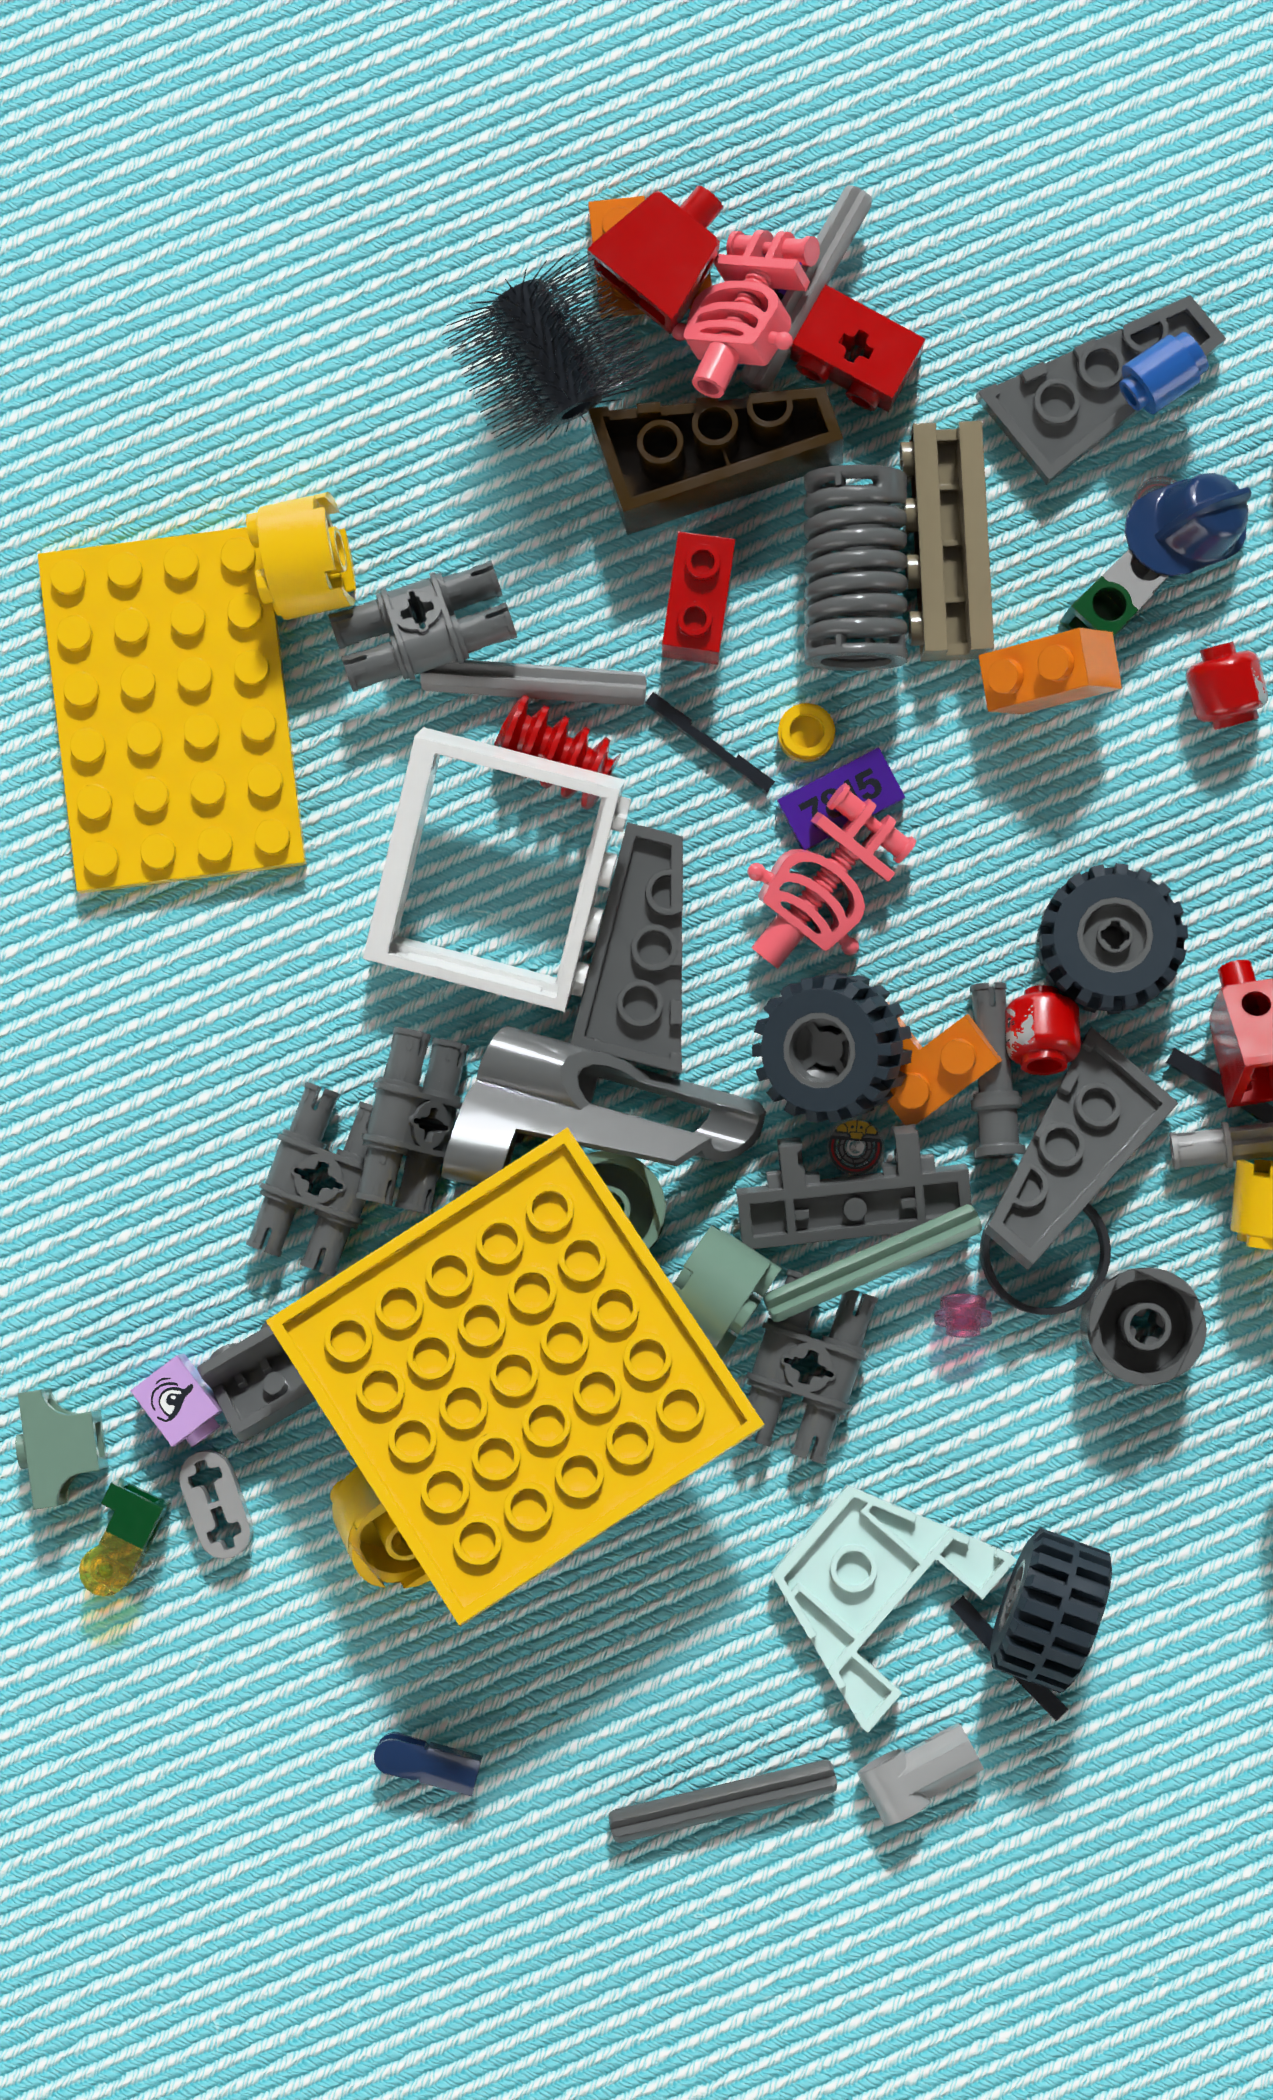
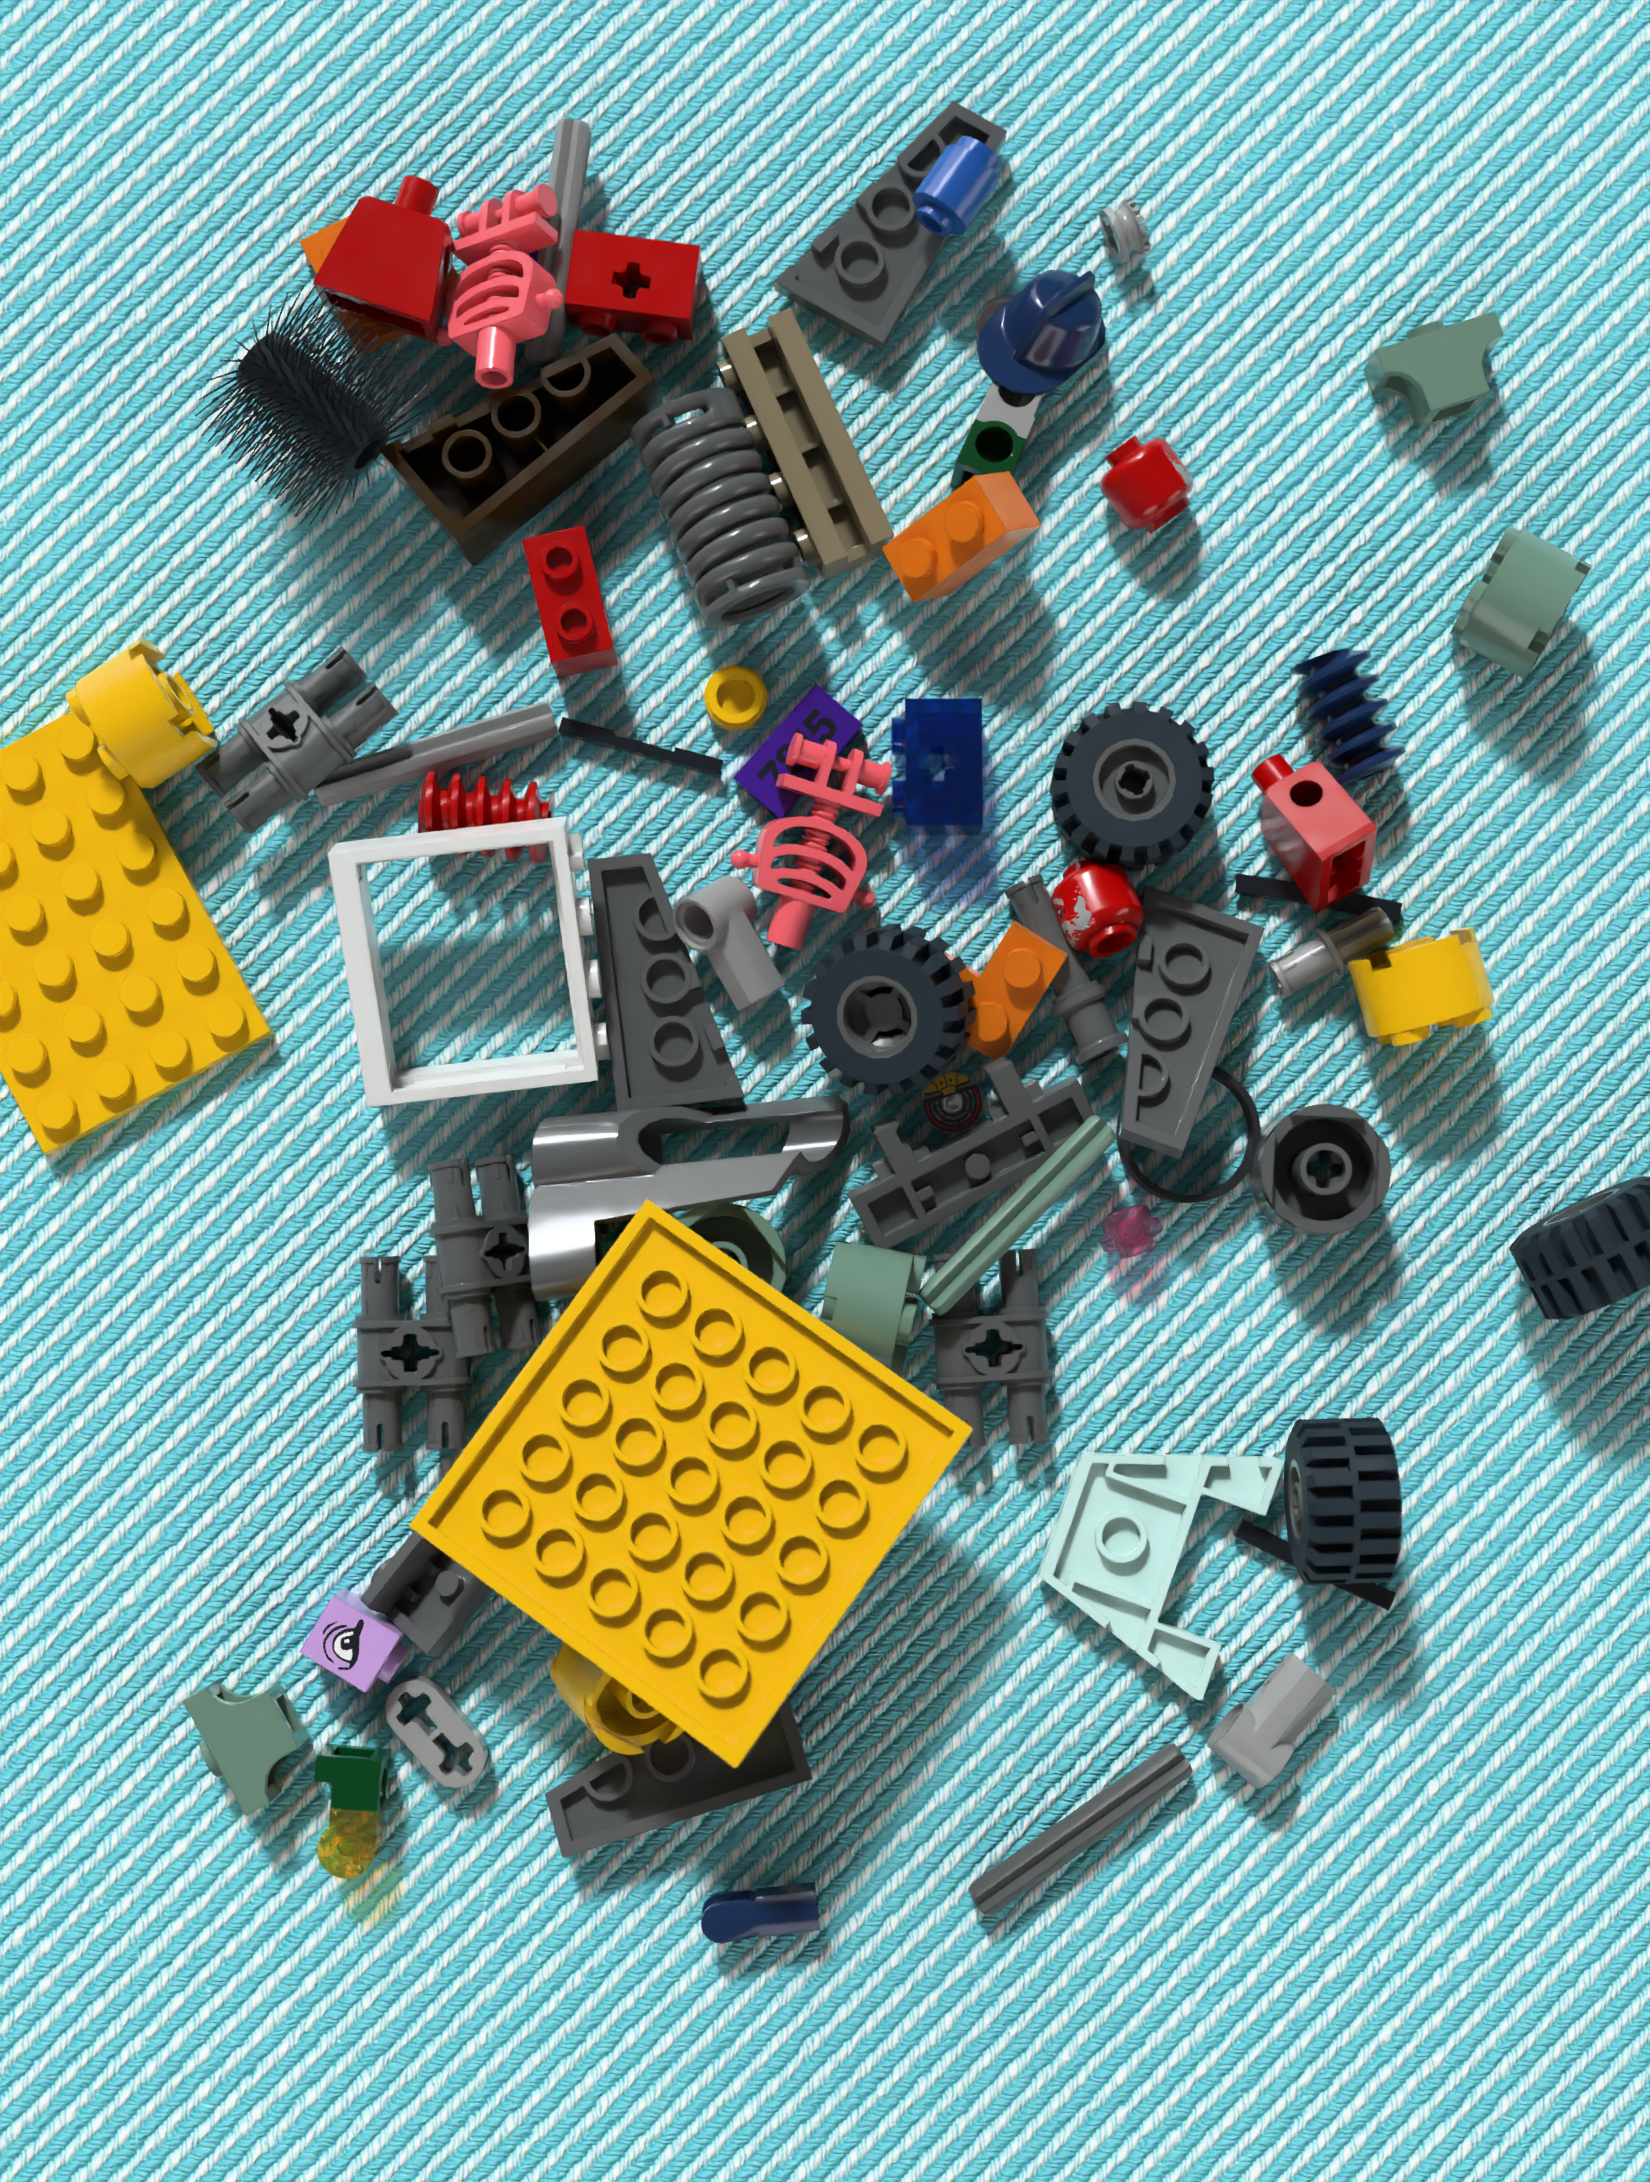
camera: 30 degrees left, 0 degrees up
(398, 1625) = (670, 1784): none -> dark grey wing
(718, 920) = (720, 924): none -> light grey piece
(980, 834) = (955, 733): none -> clear blue brick

